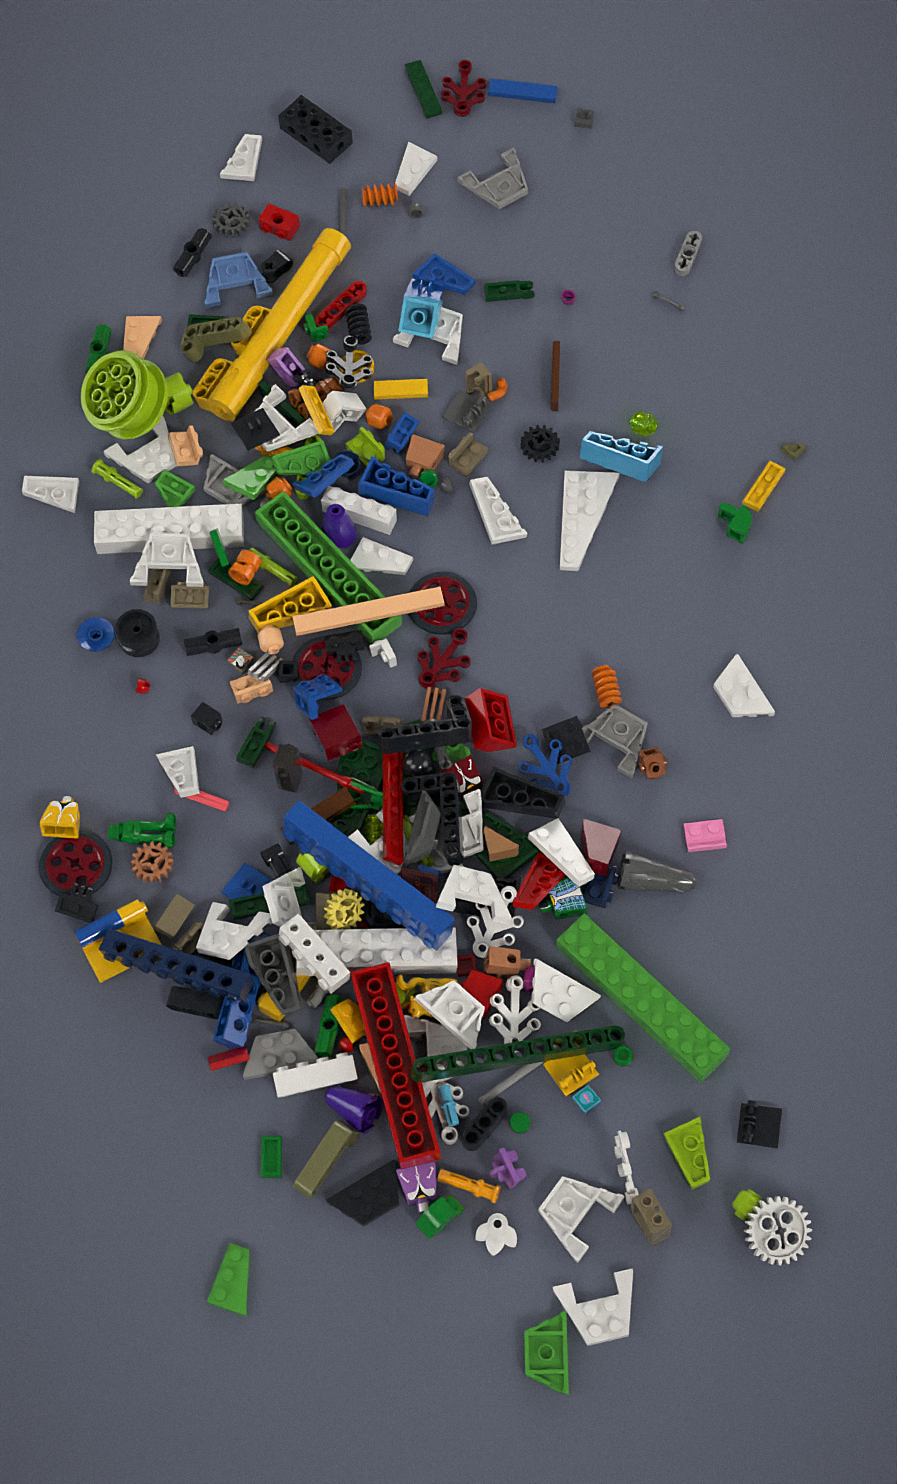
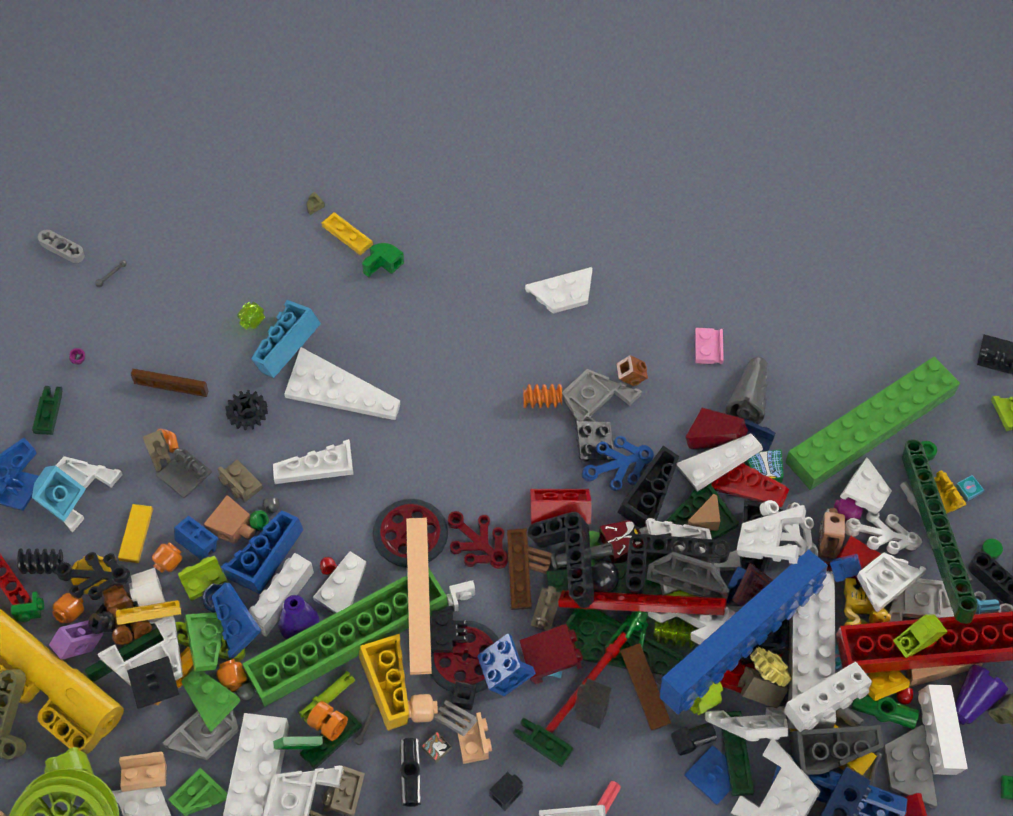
camera: 85 degrees left, 5 degrees down
(386, 1029) = (920, 635): none -> lime slope
(395, 542) = (327, 565): none -> red hinge
(418, 696) = (519, 569): none -> reddish brown tile
(462, 971) = (845, 567): none -> blue panel

